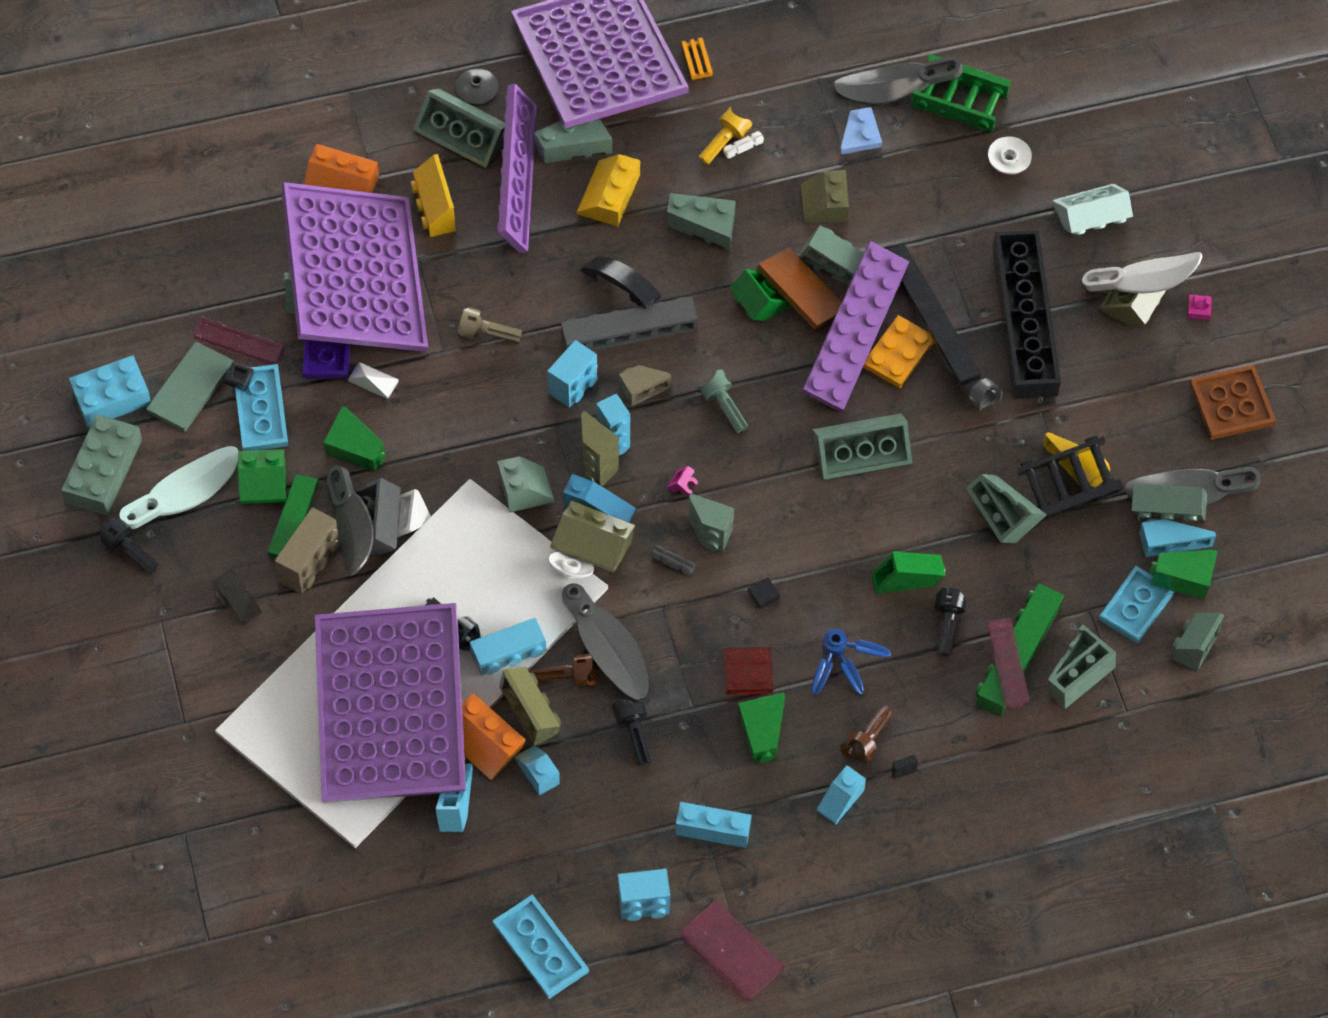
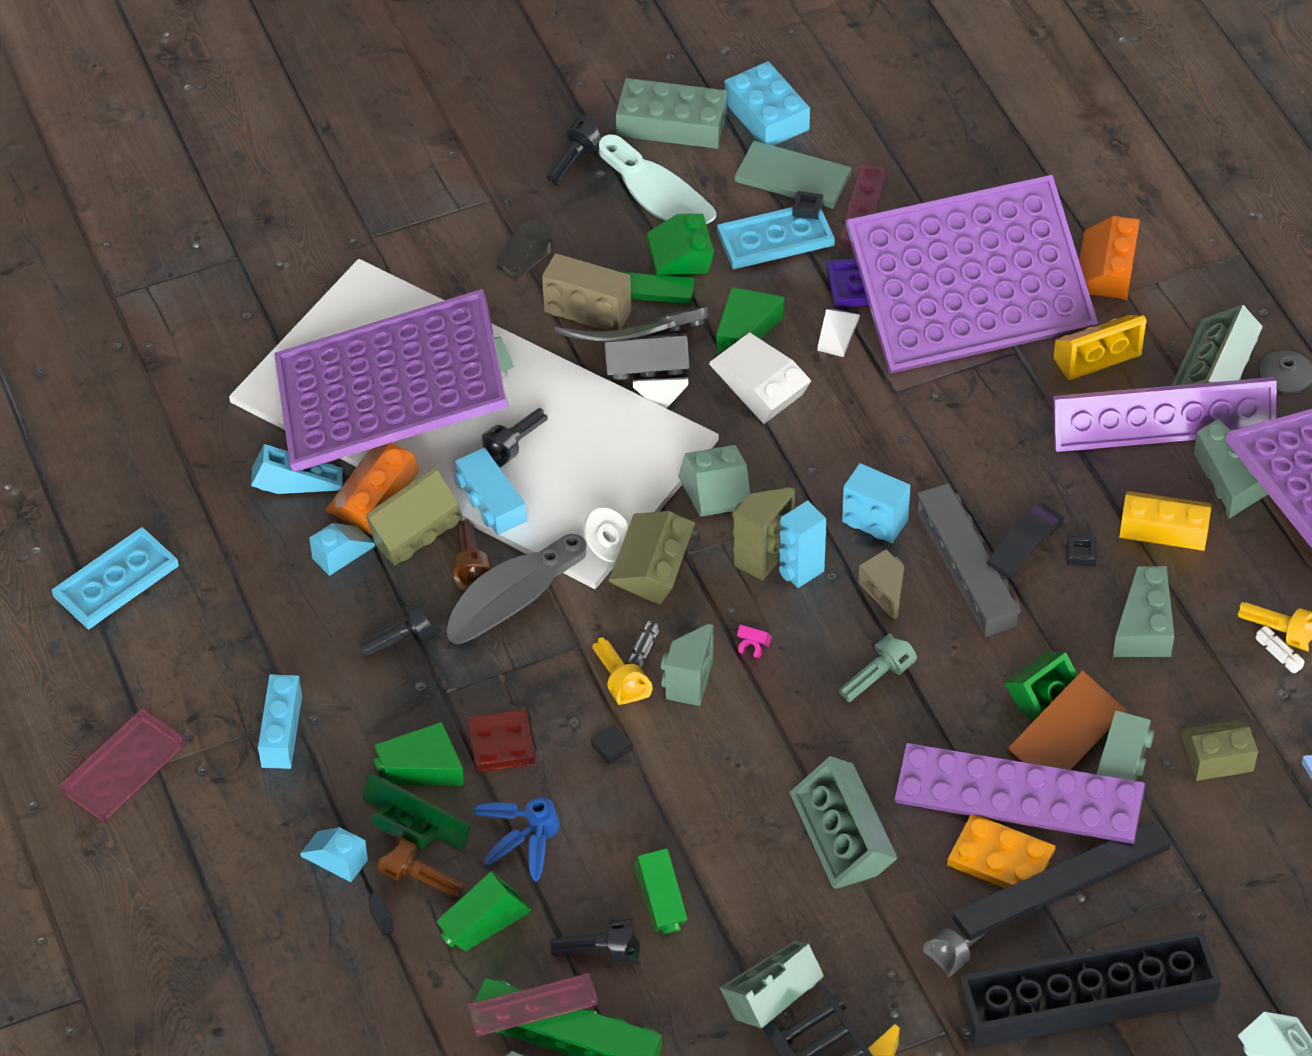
camera: 85 degrees right, 10 degrees down
(423, 435) = (761, 376): none -> white slope
(472, 323) = (929, 409): dark tan piece -> none
(596, 497) = (708, 557): dark azure slope -> none
(629, 252) = (1081, 551): none -> black tile
(644, 894) = (176, 657): medium azure brick -> none
(714, 571) = (627, 681): none -> yellow piece
(818, 738) = (412, 816): none -> dark green bracket
(916, 694) = (482, 913): none -> green slope

